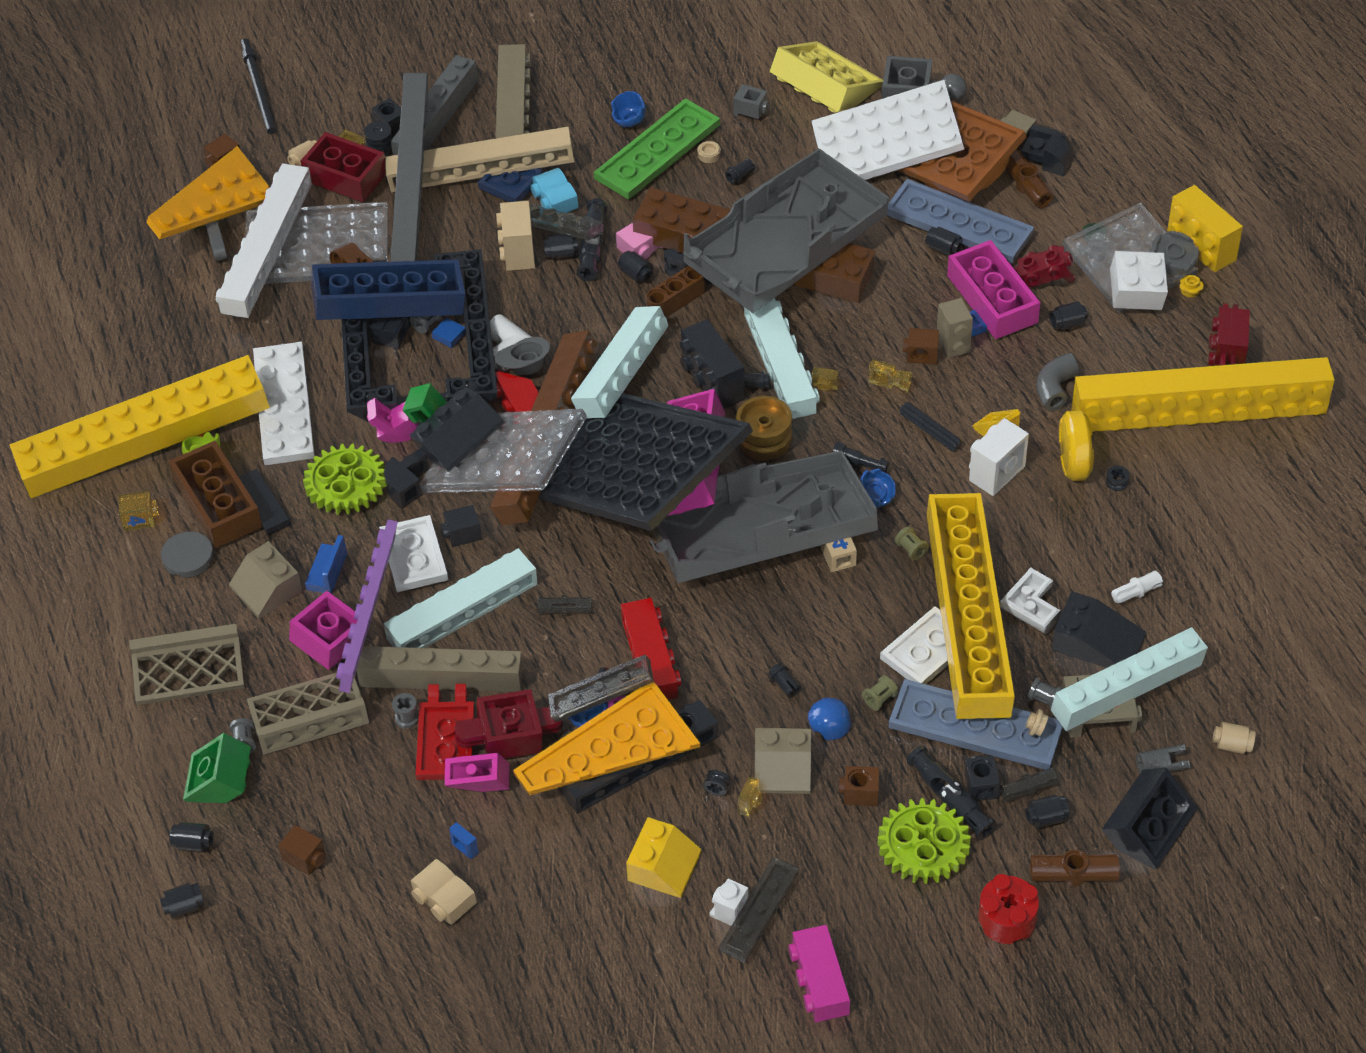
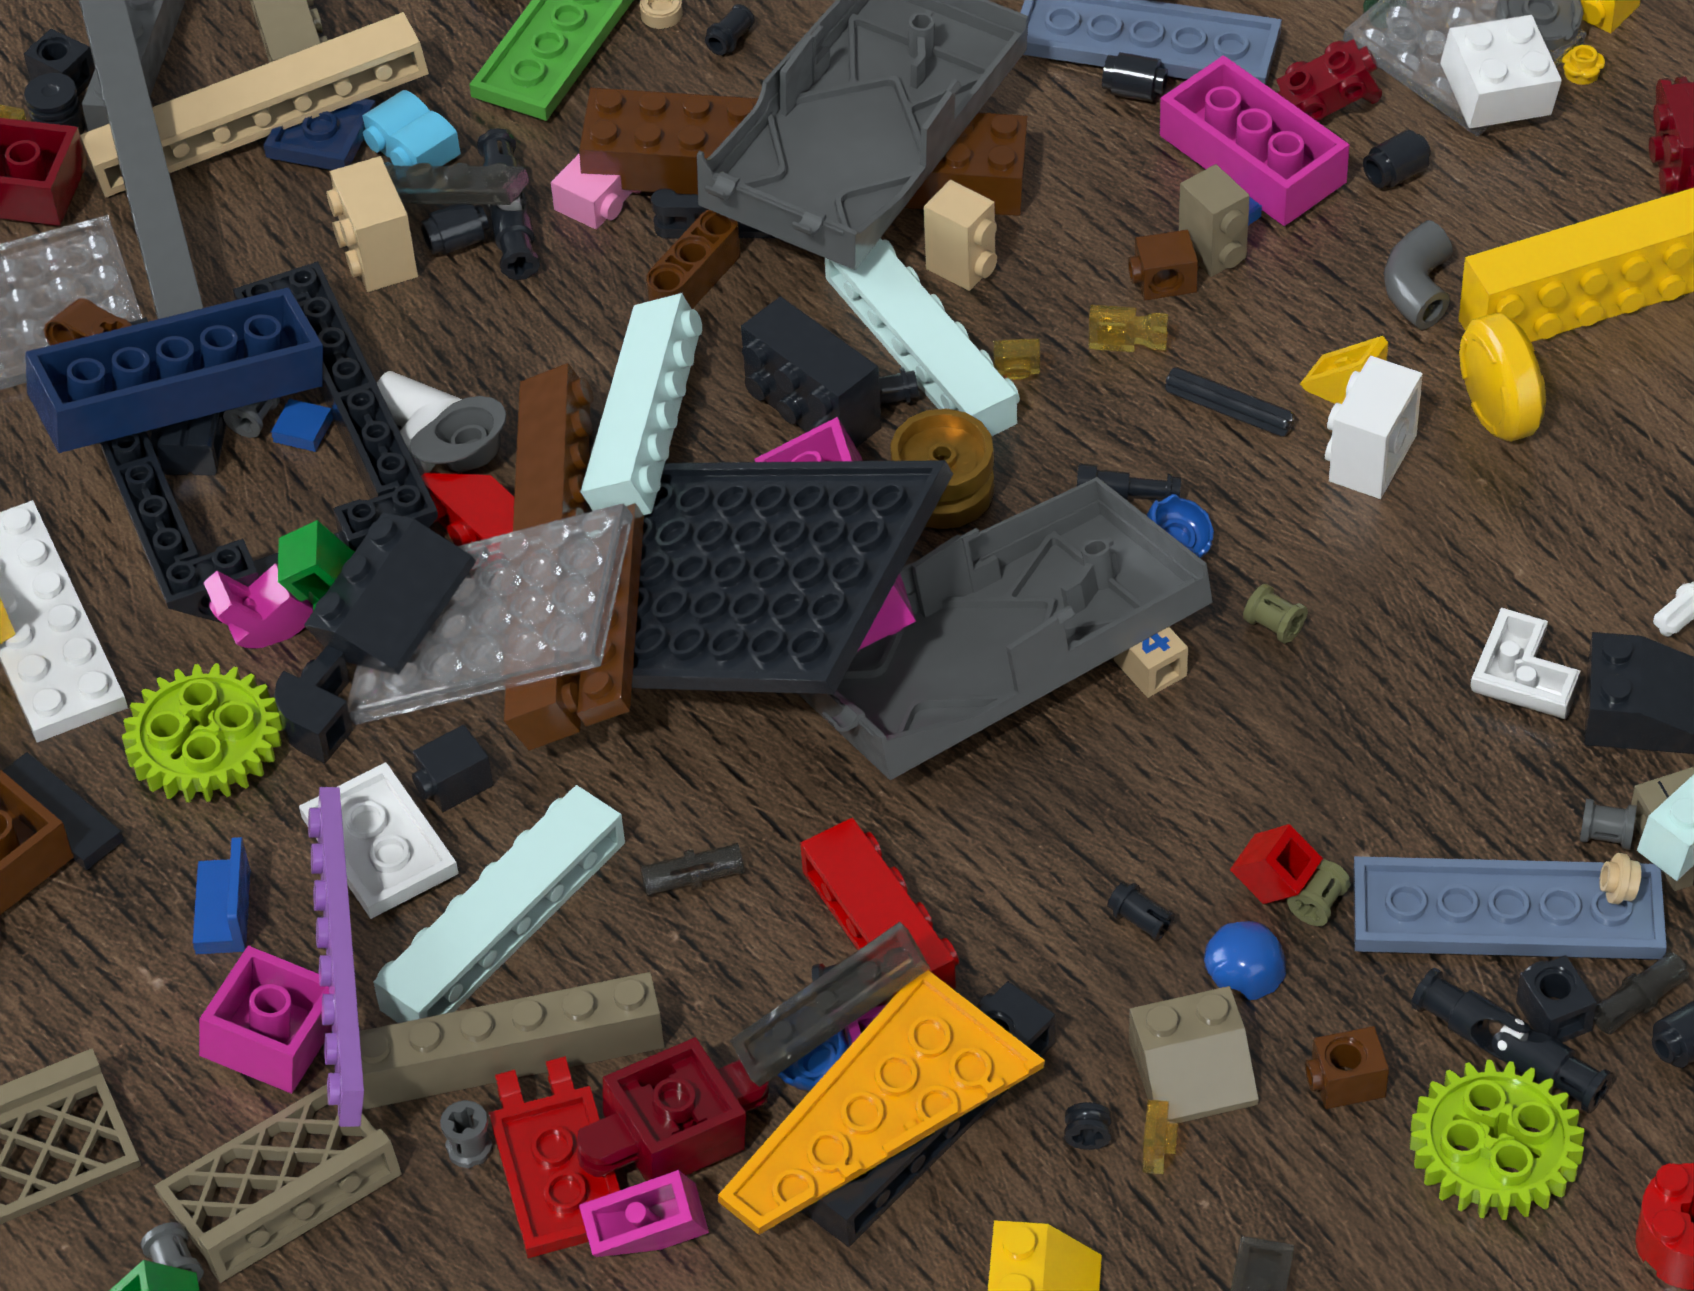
camera: 15 degrees left, 0 degrees up
(265, 580) = (116, 954): dark tan slope -> none
(548, 500) = (608, 688): none -> reddish brown plate
(635, 266) = (605, 235): black brick -> none
(817, 307) = (960, 235): none -> tan brick
(861, 672) = (1276, 864): none -> red brick
(920, 650) = (1371, 790): white plate -> none
(969, 607) = (1427, 702): yellow brick -> none
(1117, 471) = (1585, 431): black bush -> none

